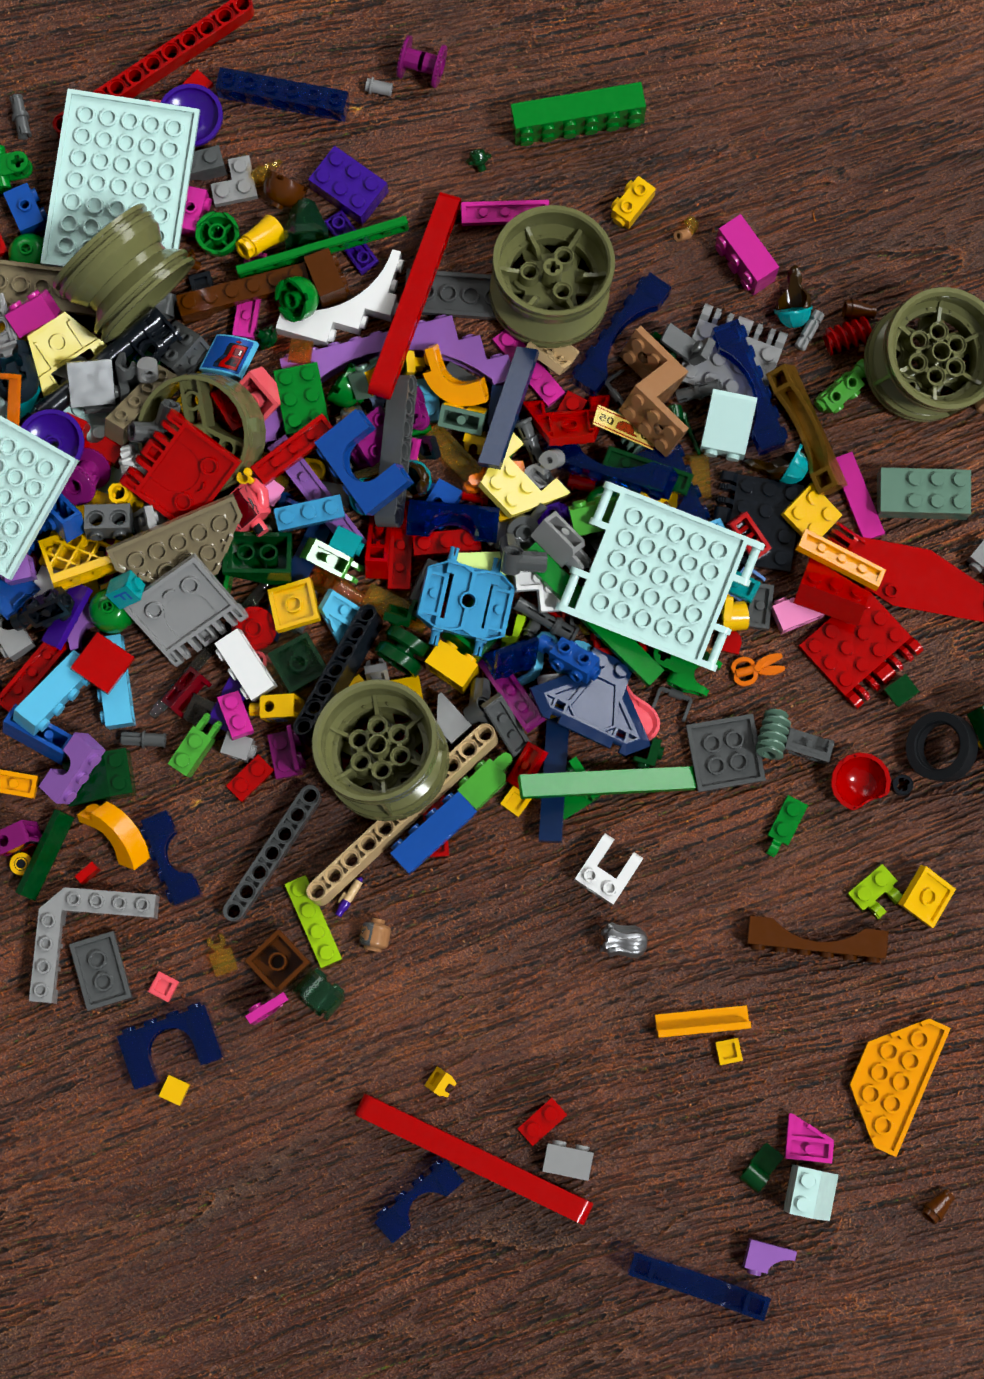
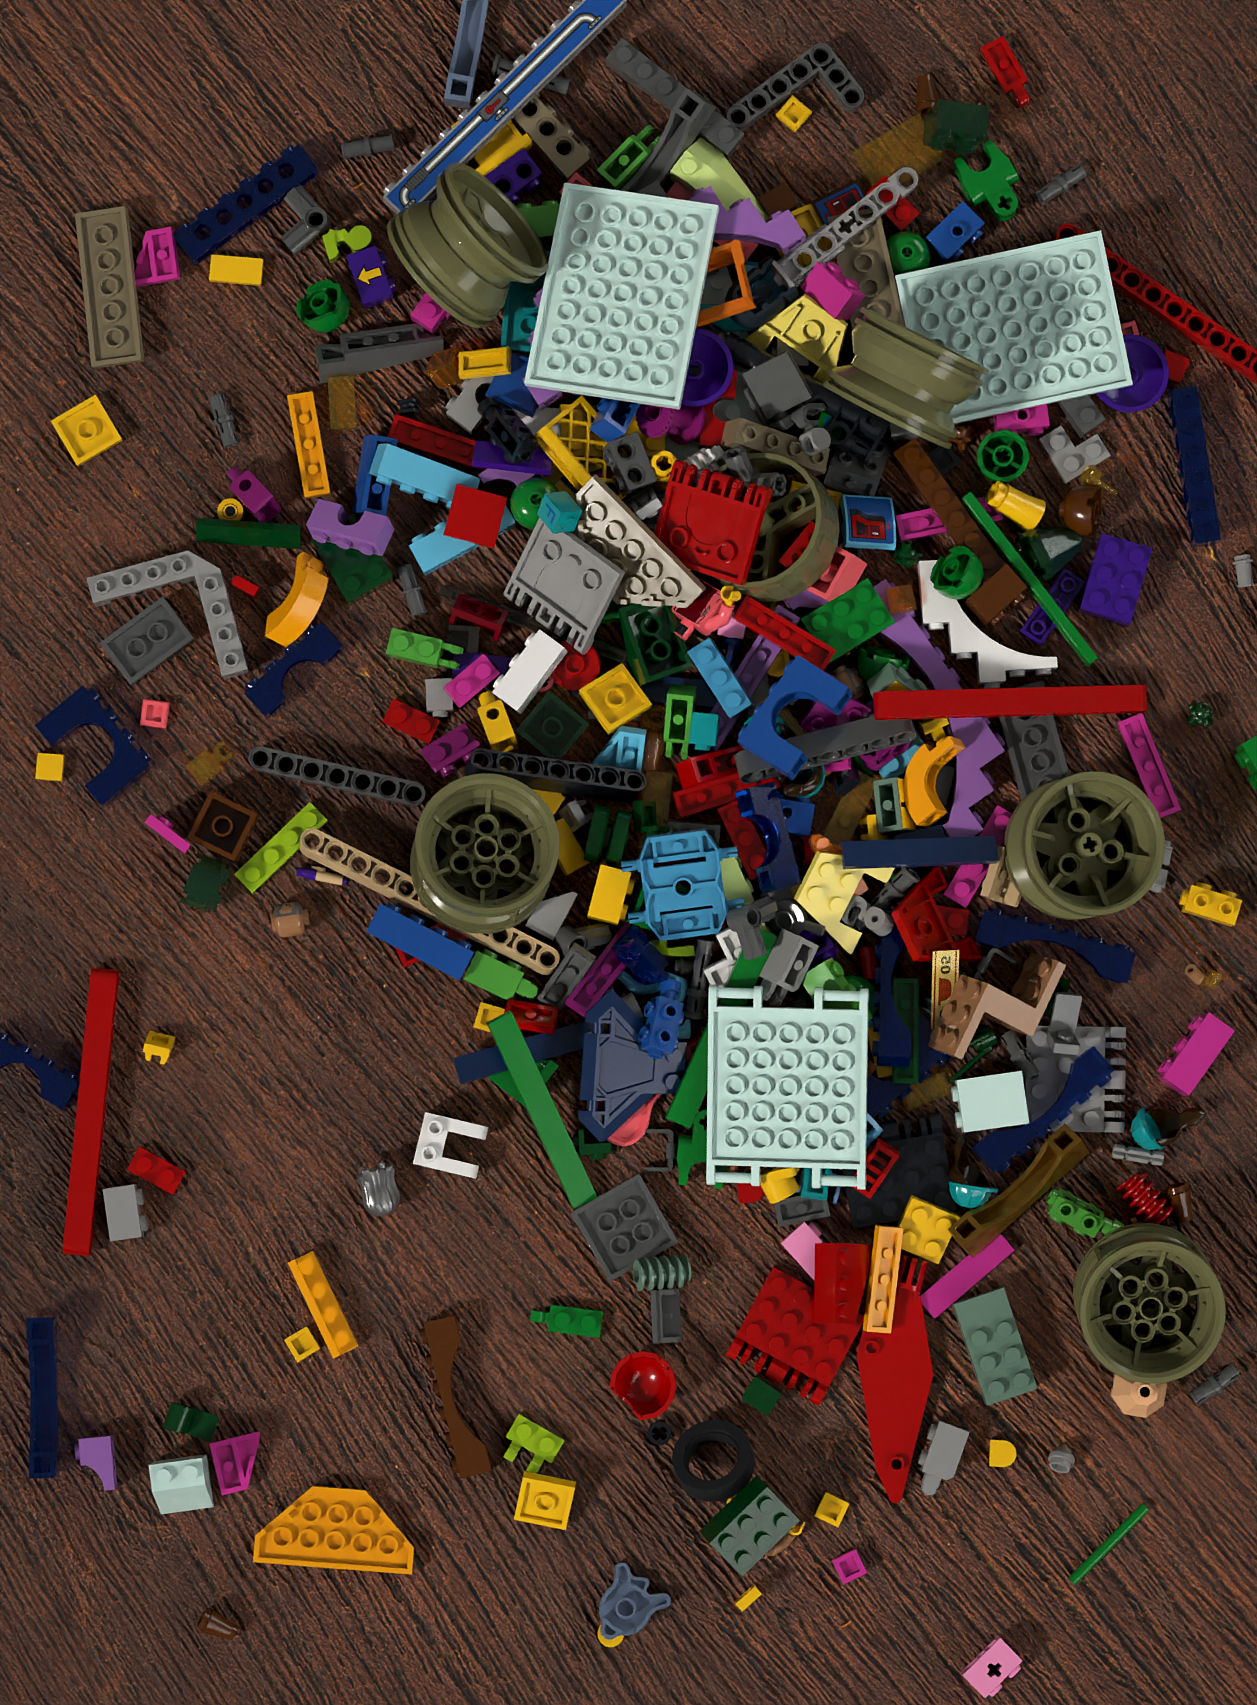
camera: 60 degrees right, 5 degrees up
(761, 667) = (734, 1234): orange piece -> none

